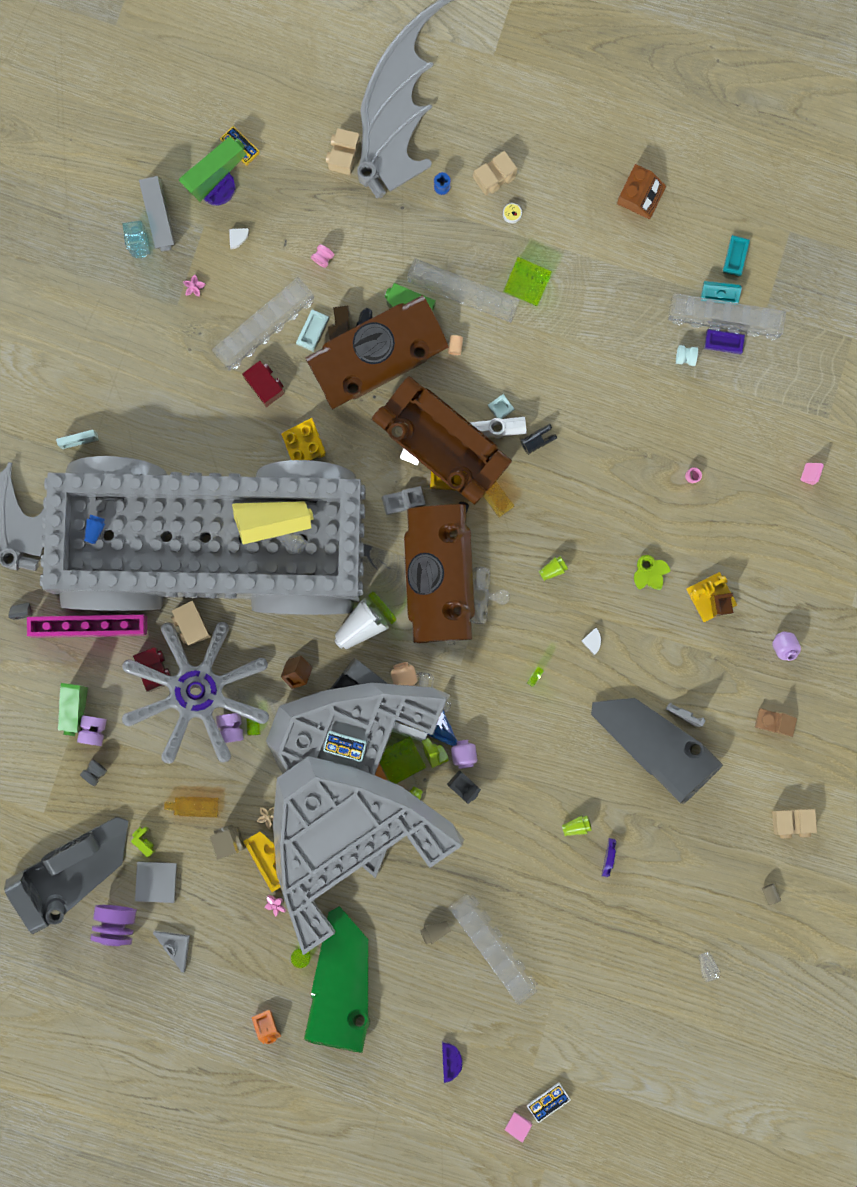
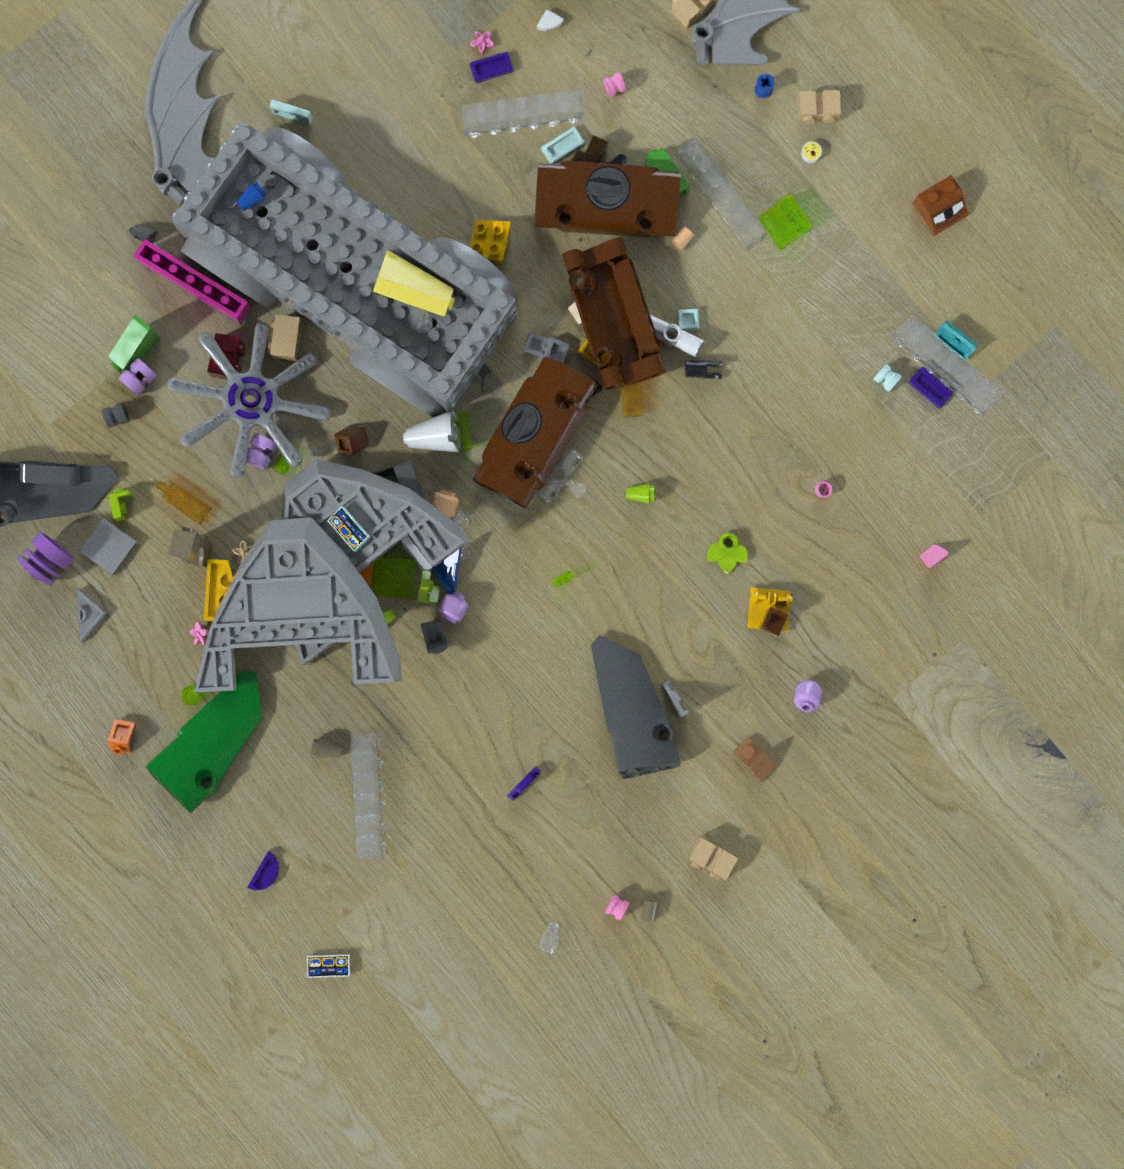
camera: 30 degrees right, 0 degrees up
(214, 303) = (491, 67): none -> dark purple tile
(263, 383) = (487, 165): dark red brick -> none
(518, 1127) = (287, 969): bright pink slope -> none
(577, 826) = (515, 737): lime cone -> none
(593, 641) = (635, 580): white tile -> none
(736, 256) = (991, 316): teal tile -> none
(744, 908) = (617, 907): none -> bright pink wheel

